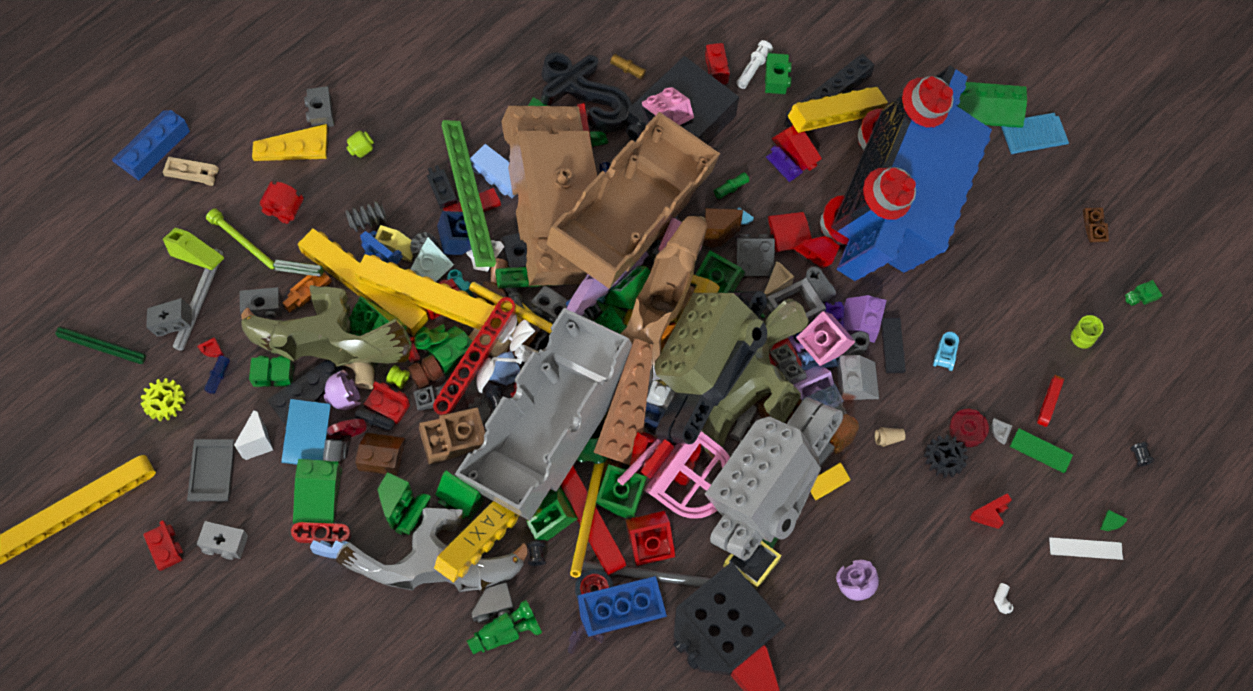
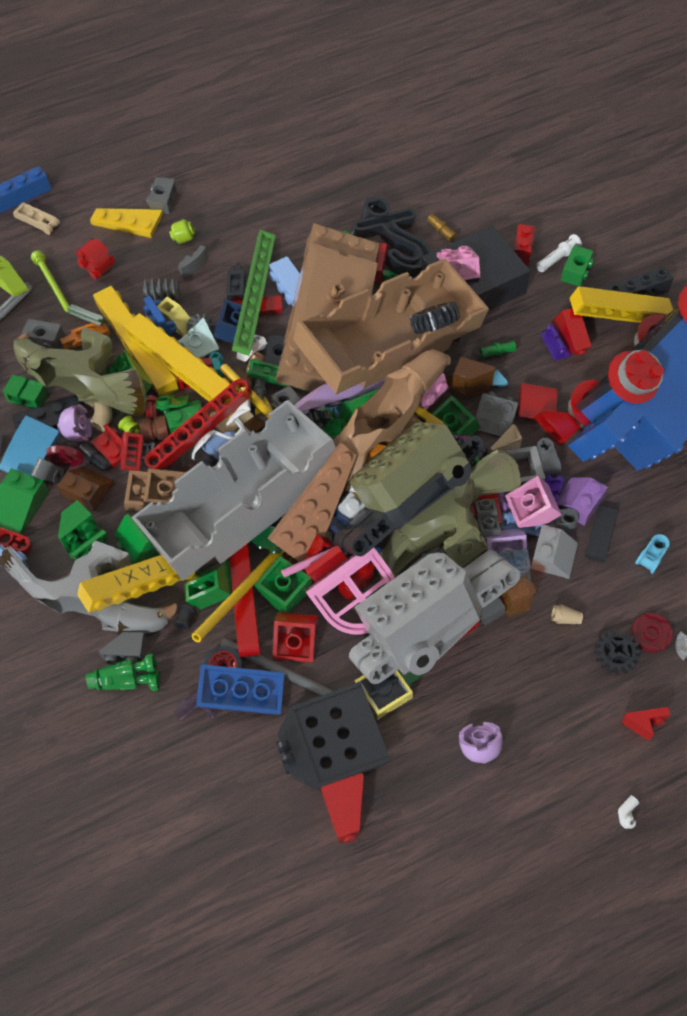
camera: 25 degrees right, 5 degrees down
(386, 178) = (192, 264): none -> dark grey slope
(406, 398) = (131, 436): none -> red slope
(675, 180) = (435, 317): none -> black gear
(829, 481) = (488, 638): yellow slope -> none

